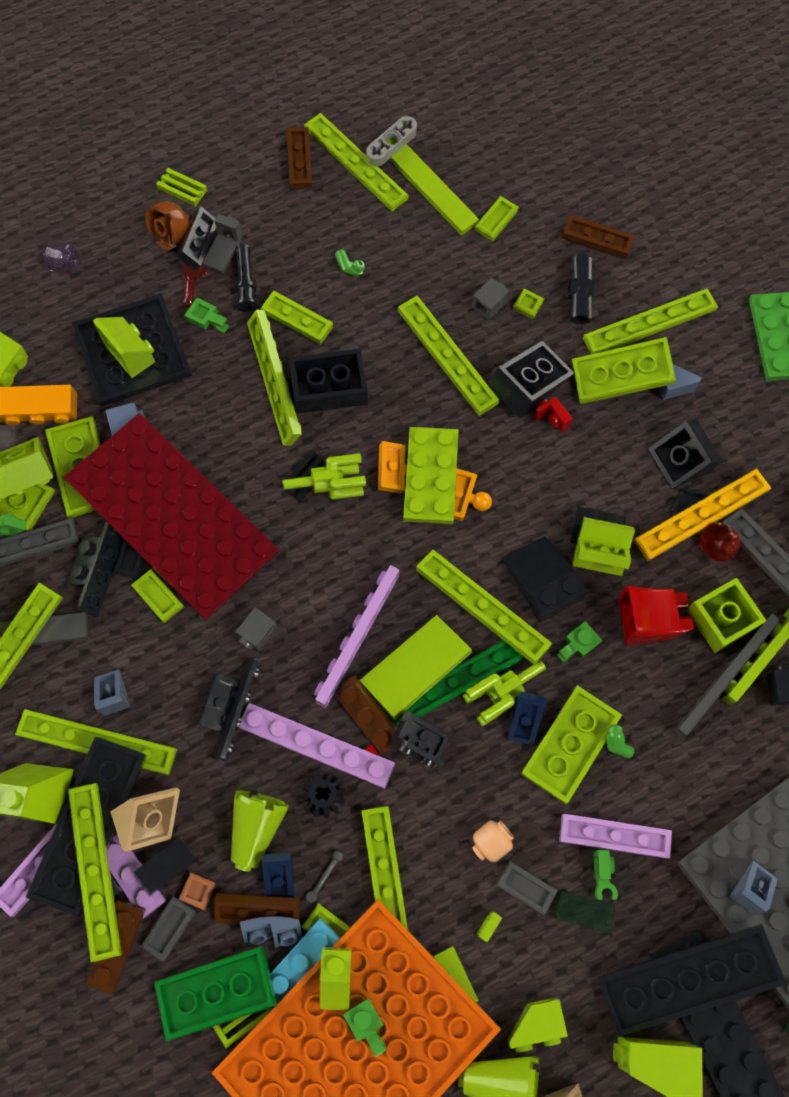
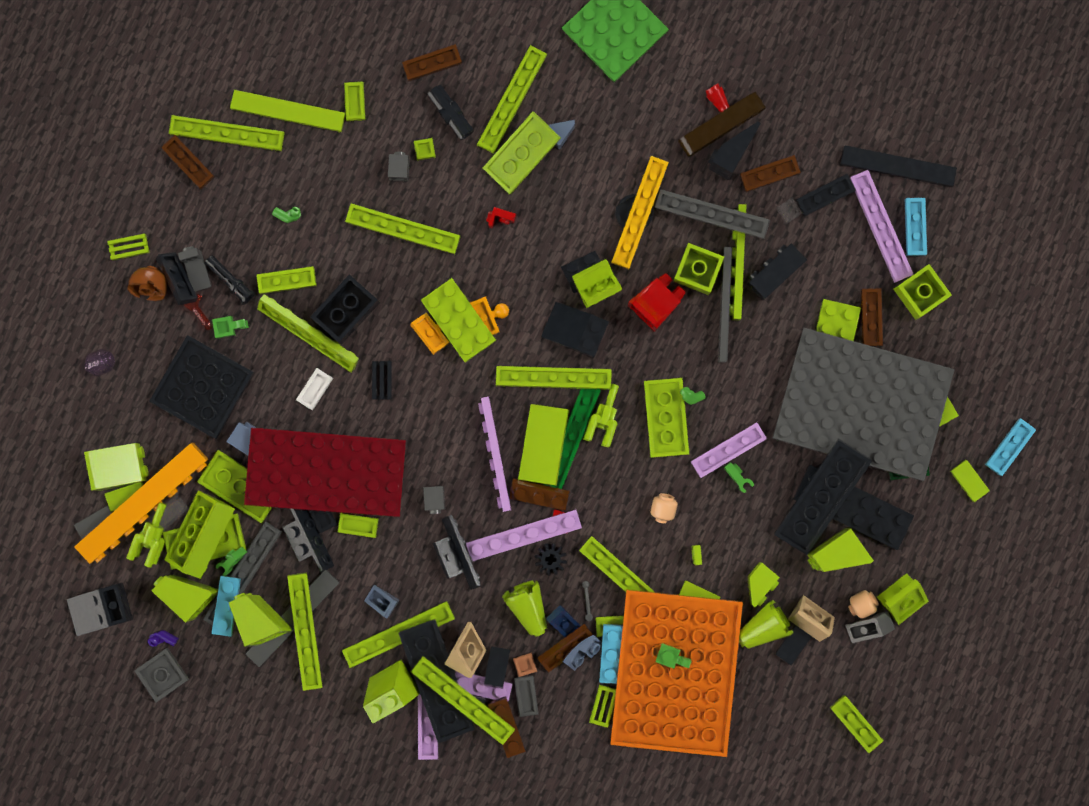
camera: 30 degrees left, 15 degrees up
(125, 344) = (201, 390): lime slope -> none
(215, 993) = (579, 706): green tile -> none
(234, 433) = (314, 389): none -> white tile
(331, 478) = (400, 372): lime plant -> none
(335, 978) = (637, 647): lime slope -> none
(393, 132) = (233, 113): light grey beam -> none
(422, 738) = (580, 484): black bracket -> none
(526, 718) = (629, 424): dark blue slope -> none
(526, 888) = (701, 517): dark grey tile -> none
(529, 378) = (468, 203): black slope -> none
(579, 641) = (626, 351): bright green plate -> none
(585, 912) = (742, 504): clear green tile -> none
(685, 454) = (601, 179): black slope -> none
(719, 542) = (662, 223): clear red hair -> none
(755, 889) = (822, 421): sand blue slope -> none

